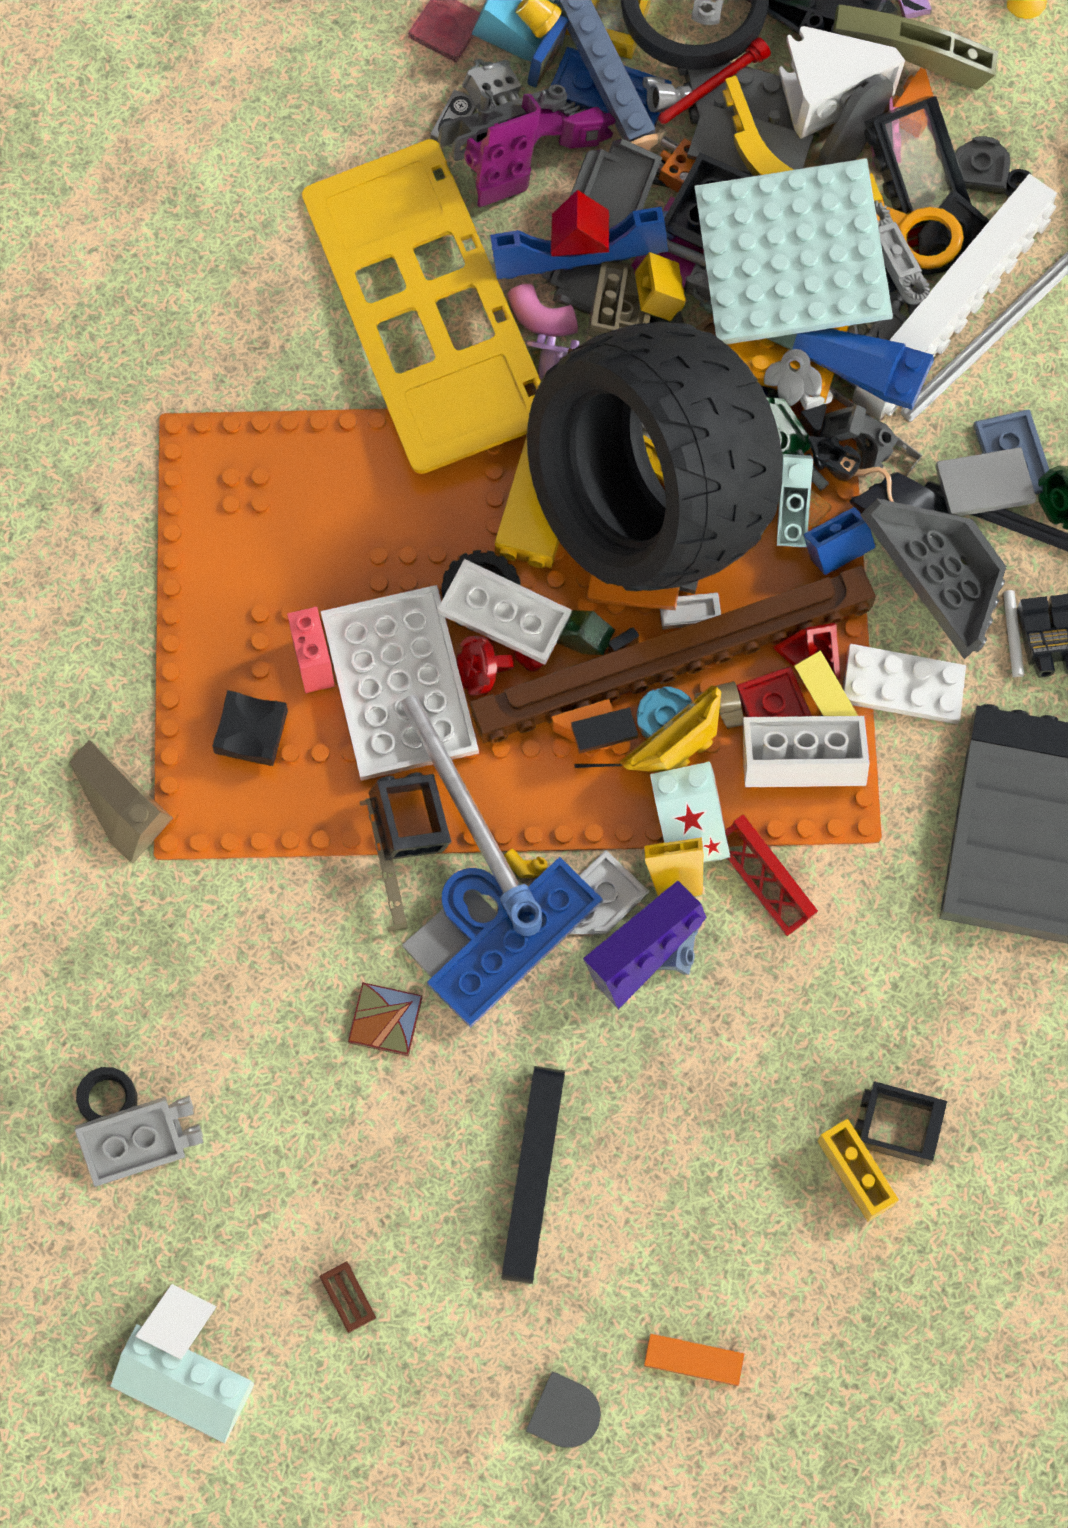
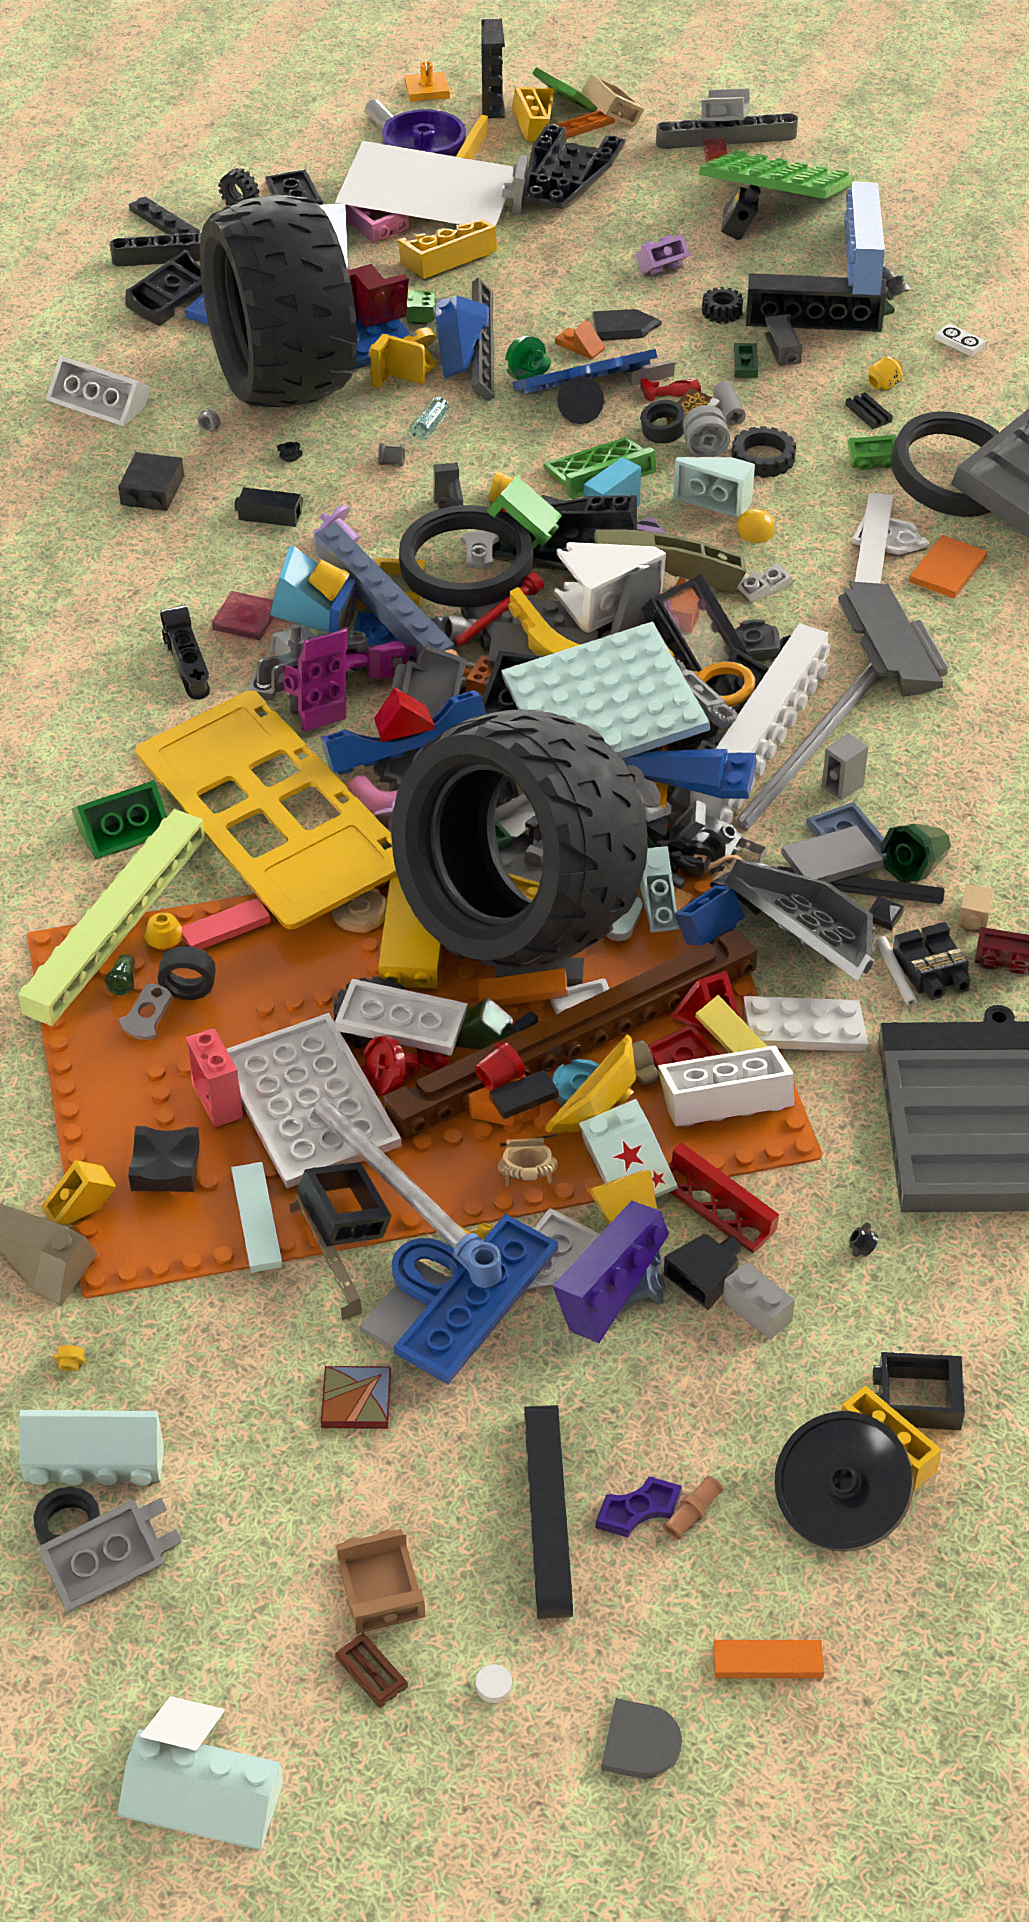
camera: 10 degrees left, 25 degrees down
(132, 925) = (69, 1357): none -> yellow plate
(136, 1033) = (90, 1446): none -> light aqua slope
(164, 751) = (78, 1193): none -> yellow slope
(242, 497) = (121, 976): none -> clear green cone
(245, 418) = (111, 918): none -> yellowish green brick
(246, 554) = (141, 1027): none -> light grey piece
(274, 289) = (120, 819): none -> green slope
(292, 448) = (163, 931): none -> yellow cone
(305, 512) = (192, 959): none -> black tyre
(327, 807) = (256, 1217): none -> light aqua tile
(355, 449) = (225, 924): none -> coral tile
(370, 47) = (185, 651): none -> black piece
(371, 1214) = (380, 1580): none -> medium nougat panel
(450, 1333) = (494, 1683): none -> white tile
(496, 462) = (362, 912): none -> tan tile
(586, 698) = (500, 1067): none -> red piece
(593, 787) = (530, 1154): none -> tan piece
(601, 1189) = (624, 1512): none -> dark purple tile
(664, 1198) = (693, 1507): none -> nougat pin
(735, 948) = (702, 1267): none -> black torso
(776, 996) = (758, 1300): none -> light grey brick
(803, 1208) = (844, 1481): none -> black dish
(893, 949) = (863, 1240): none -> black plate
(1015, 84) = (758, 586): none -> white slope
(1022, 559) = (886, 913): none -> black tile
(1029, 369) = (844, 766): none -> light grey brick

